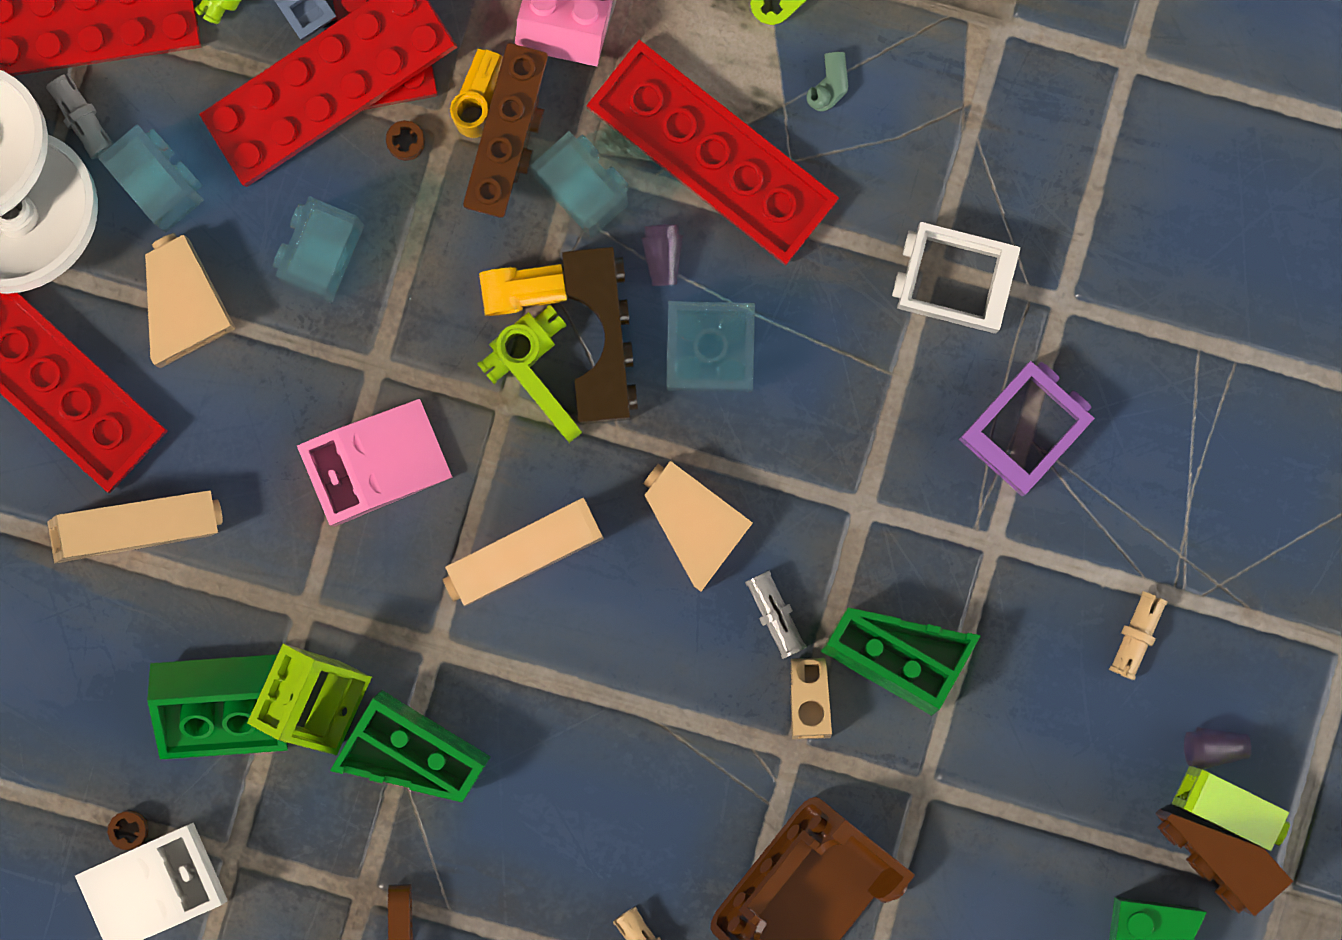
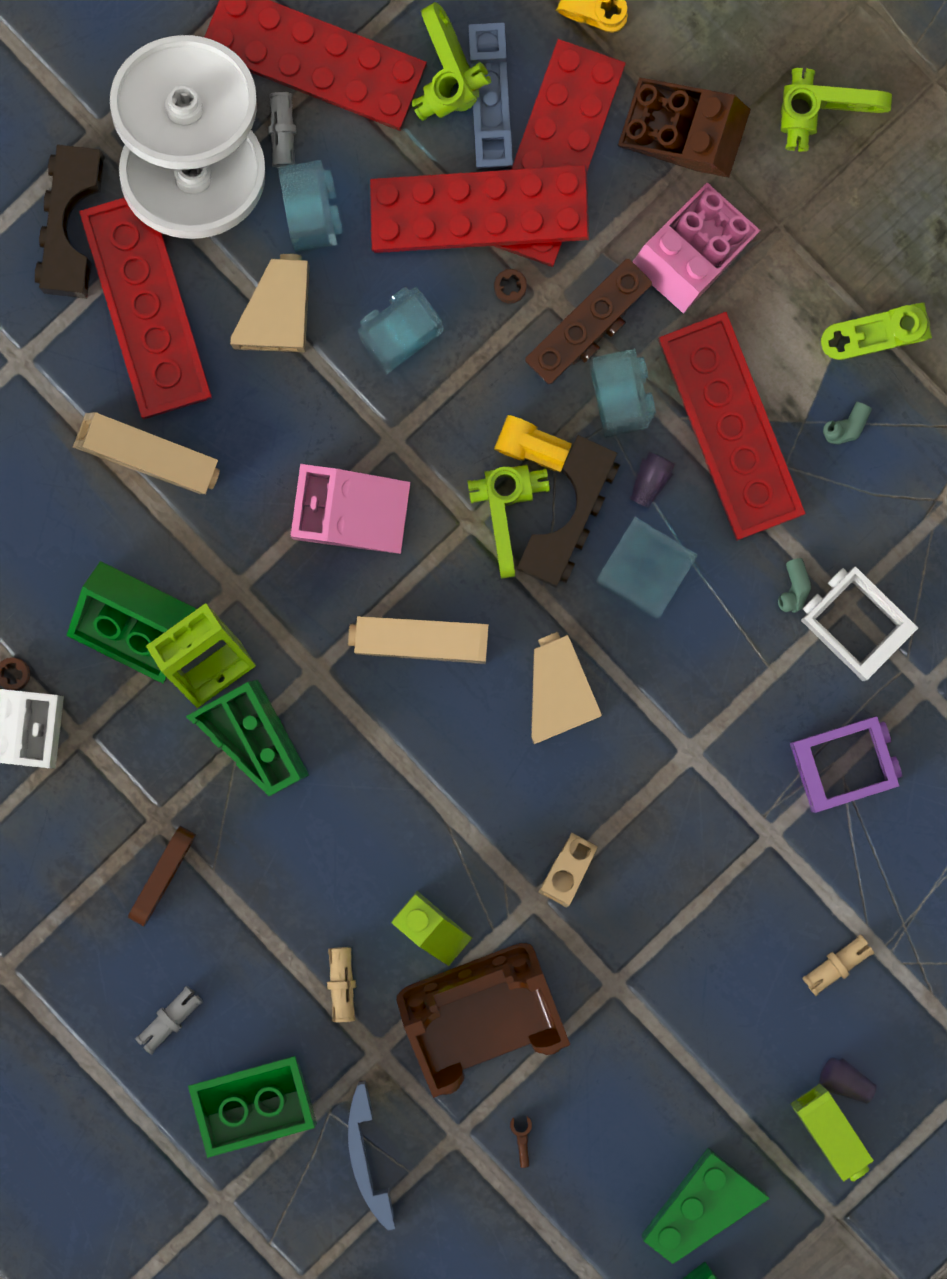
camera: 35 degrees right, 0 degrees up
(477, 91) = (584, 280): yellow piece -> none
(705, 840) = (431, 929): none -> lime slope
(775, 614) = (579, 793): light grey pin -> none
(878, 278) = (800, 587): none -> sand green arm
(901, 655) = (654, 878): green wedge -> none
(1242, 870) = (814, 1185): reddish brown slope -> none

